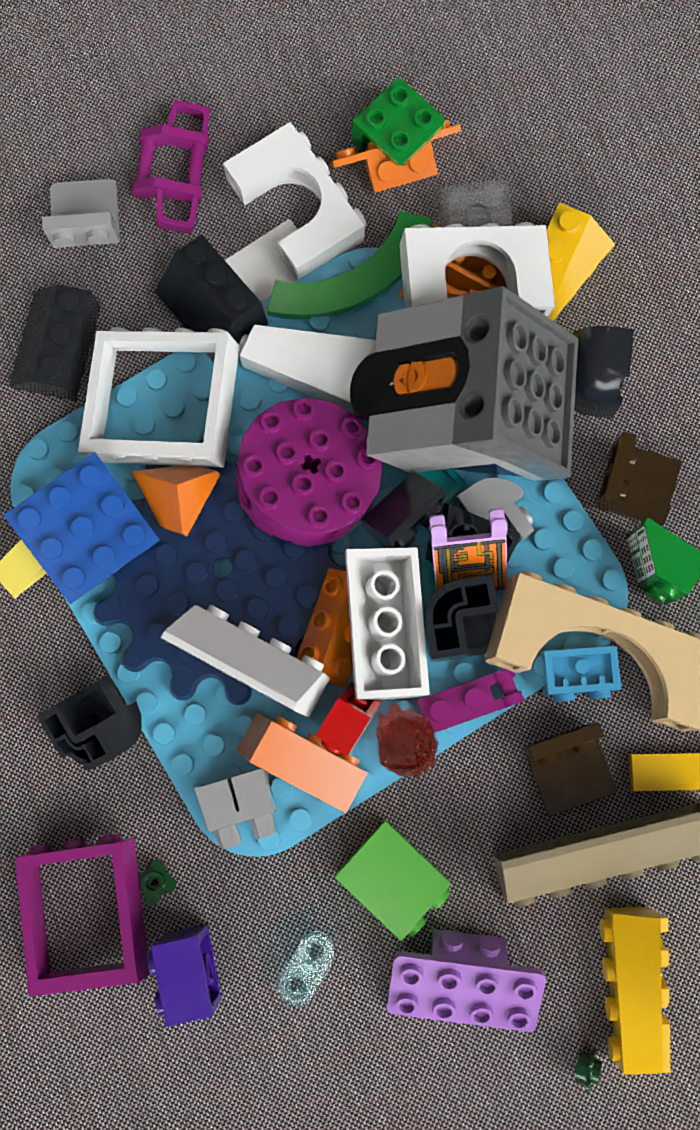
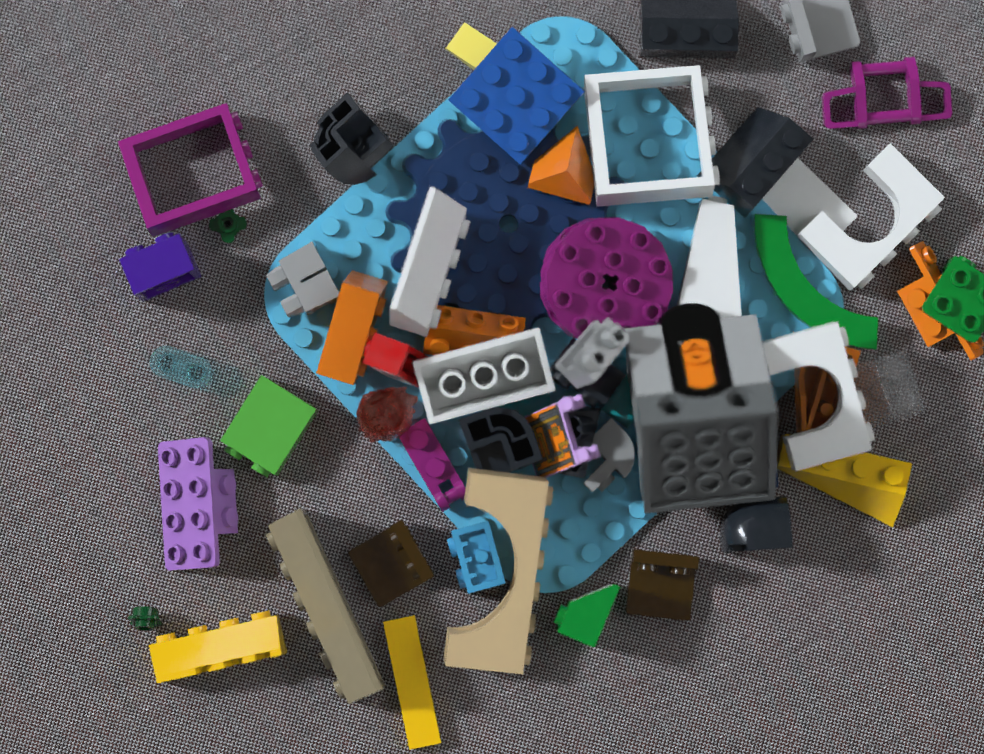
camera: 75 degrees right, 5 degrees up
(388, 490) = (592, 352): none -> light grey hips

